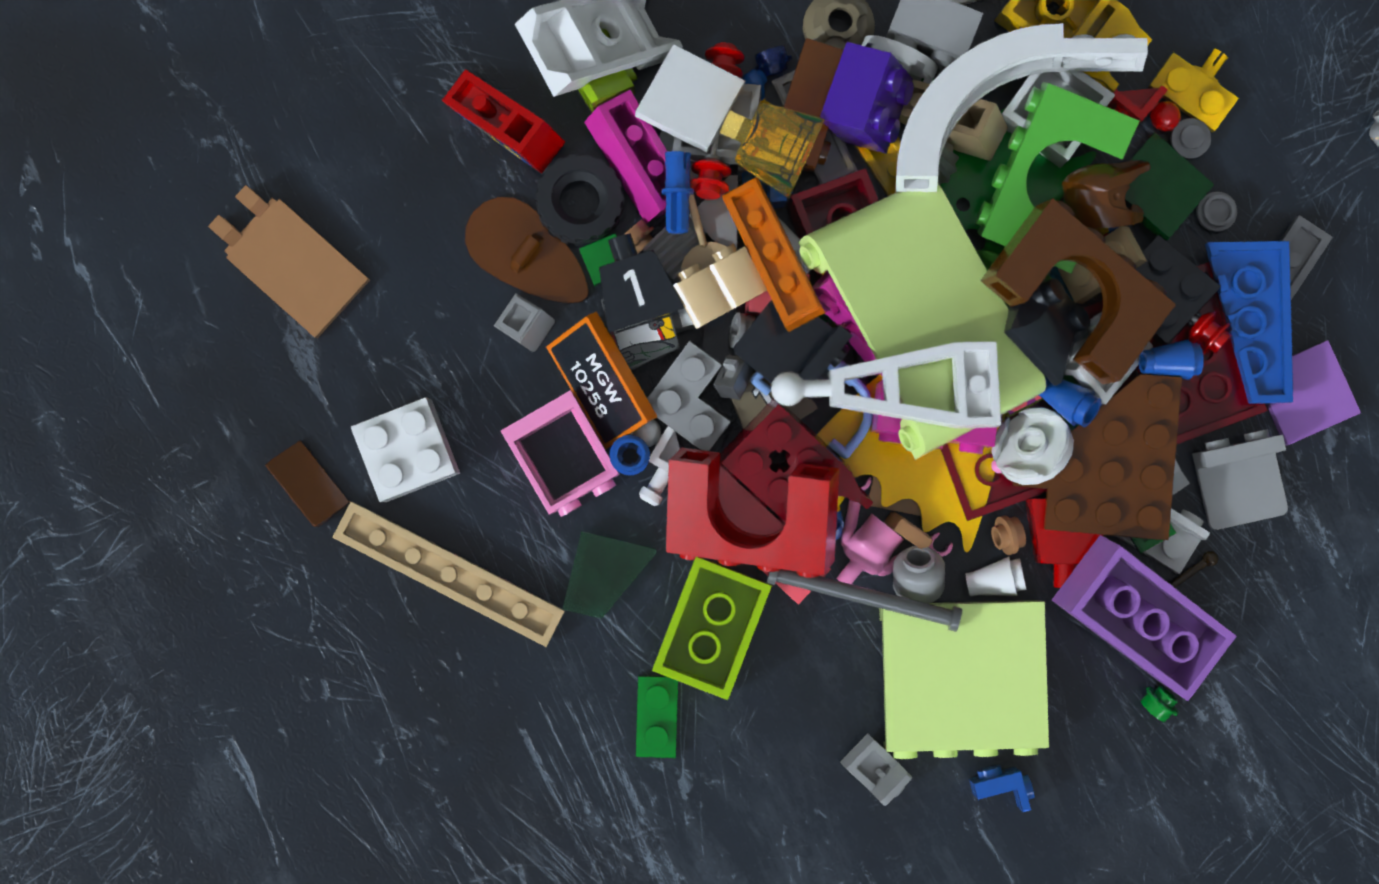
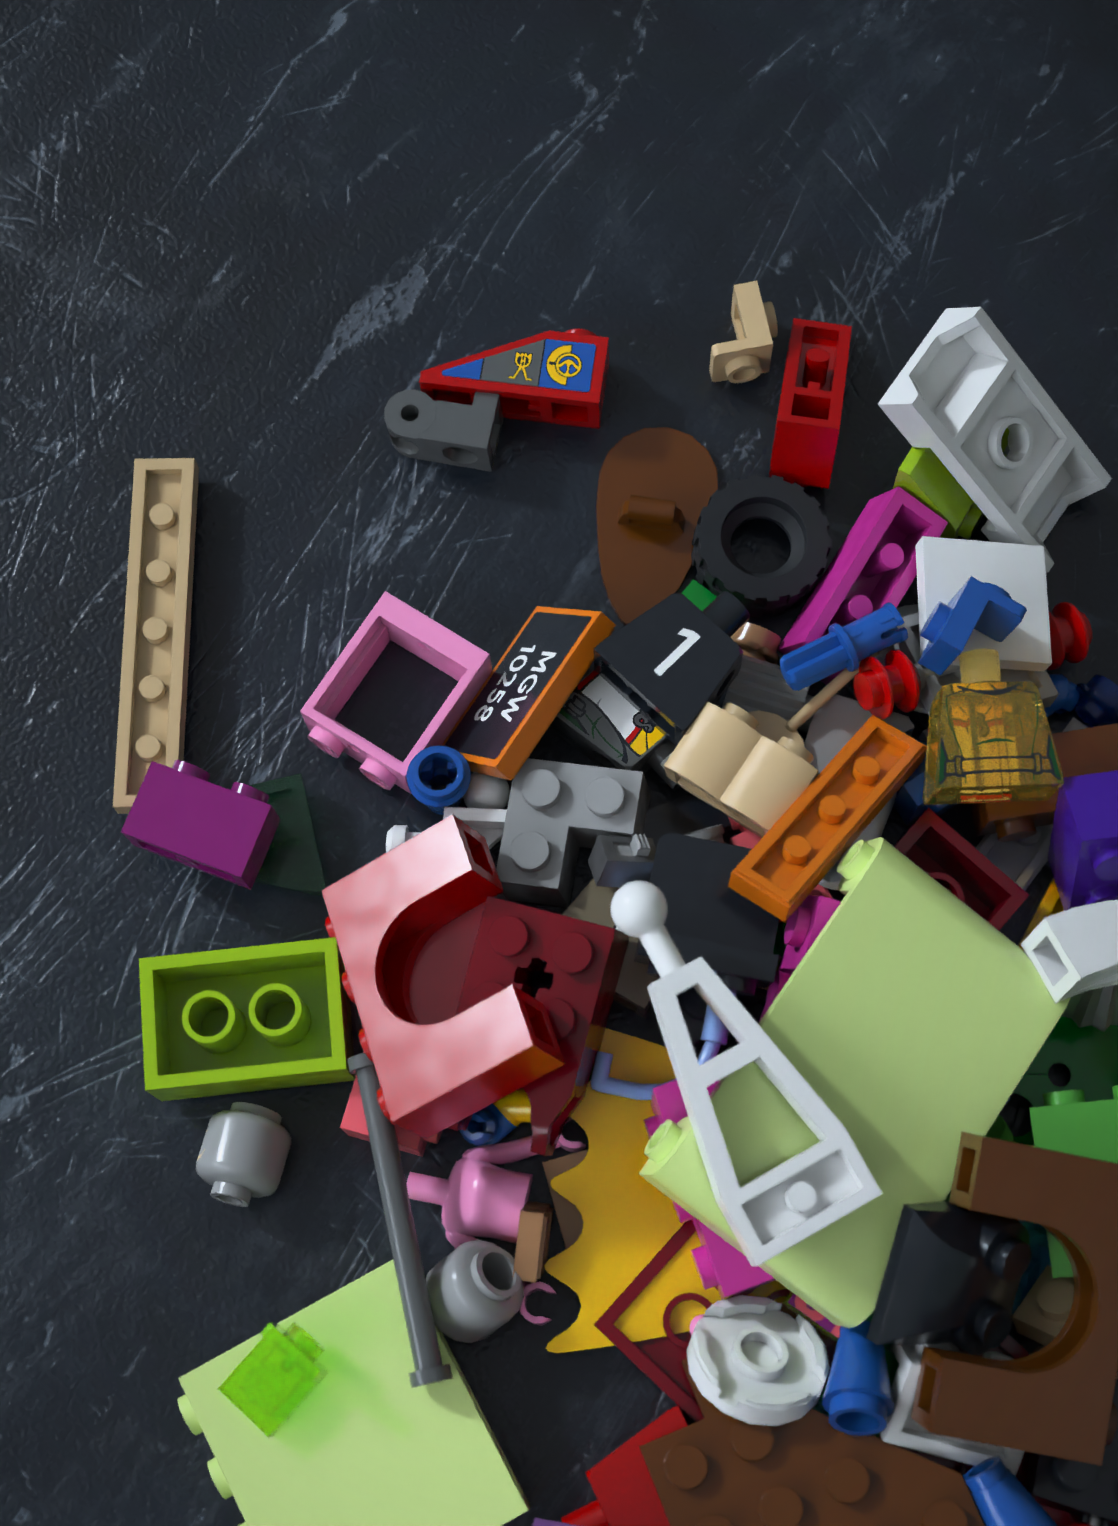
camera: 65 degrees right, 15 degrees down
(291, 262) = (478, 241): medium nougat tile -> none
(307, 484) = (192, 398): reddish brown slope -> none
(405, 273) = (538, 378): none -> slope
(405, 450) = (299, 491): white brick -> none
(409, 345) = (445, 430): none -> dark grey leg
(438, 128) = (754, 328): none -> tan bracket
(525, 323) = (554, 565): light grey slope -> none
(588, 600) = (202, 822): none -> magenta brick
(656, 717) = (81, 1016): green plate -> none
(701, 125) = (973, 607): none -> blue bracket
(781, 663) = (243, 1153): none -> light grey head
(876, 769) = (146, 1380): light grey bracket -> none
(914, 699) = (276, 1376): none -> clear neon green bracket
(998, 578) = (531, 1422): white cone -> none
(1008, 534) = (606, 1402): medium nougat plate -> none

